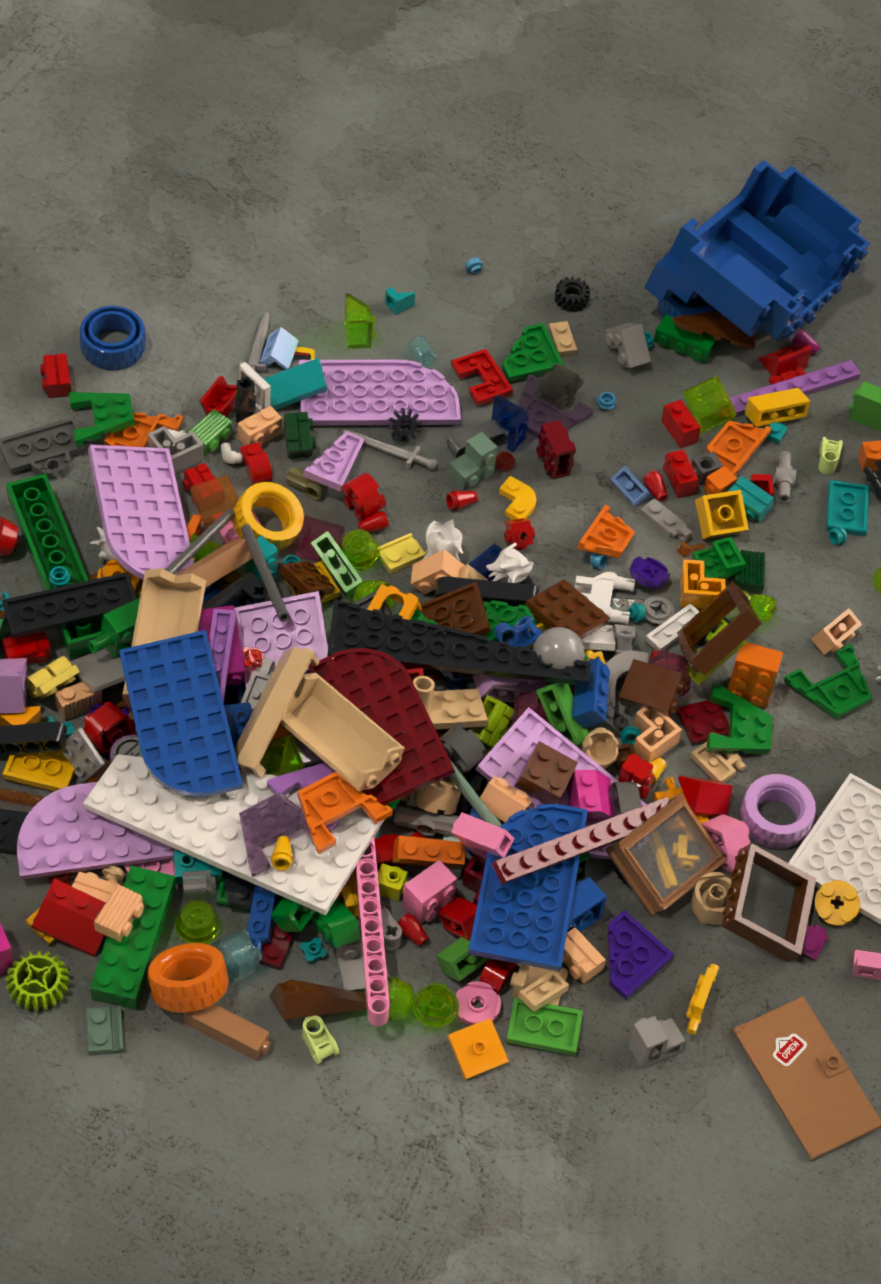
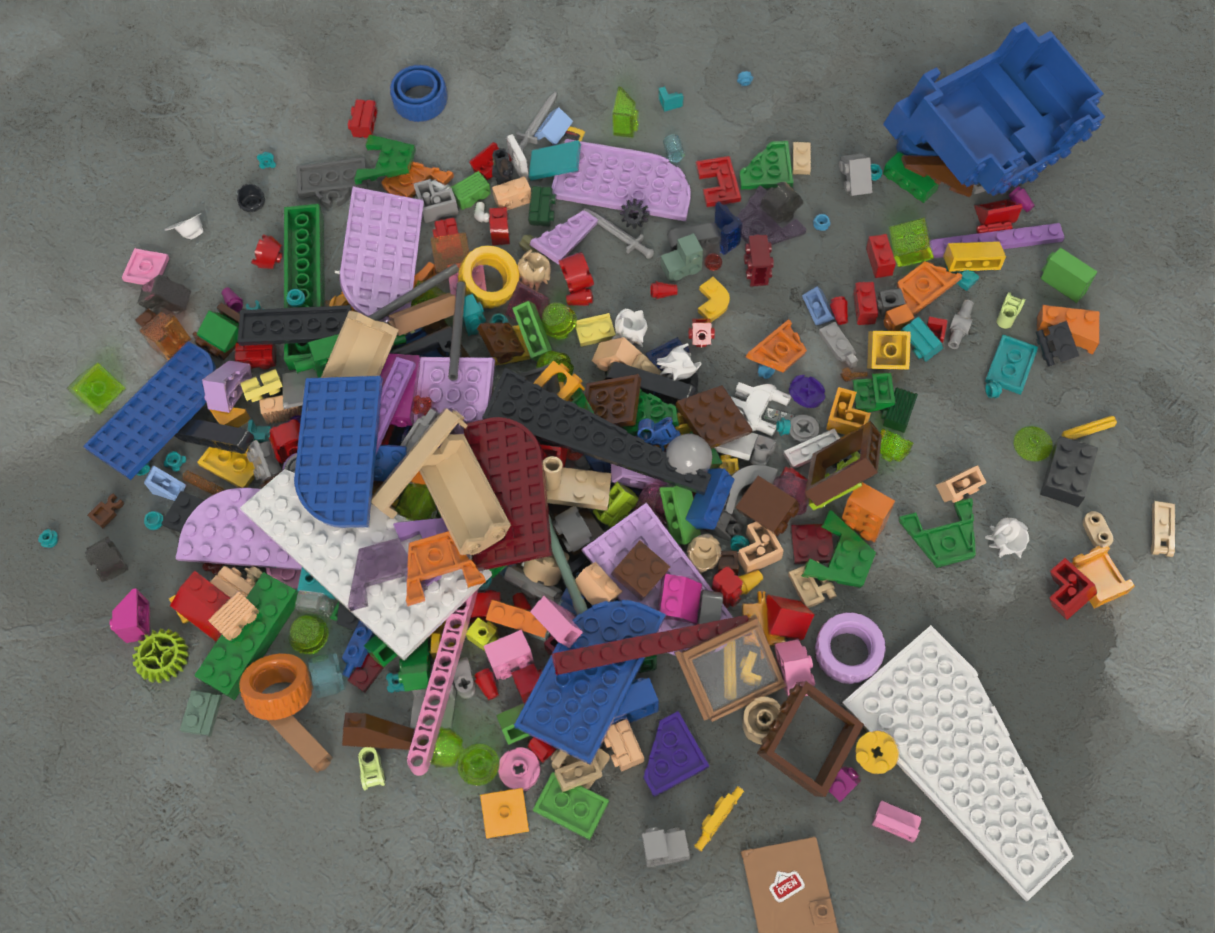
camera: 25 degrees right, 10 degrees up
(282, 854) = (380, 597): yellow cone -> none
(316, 499) = (534, 269): none -> tan hair
(572, 286) = (825, 111): black tyre -> none

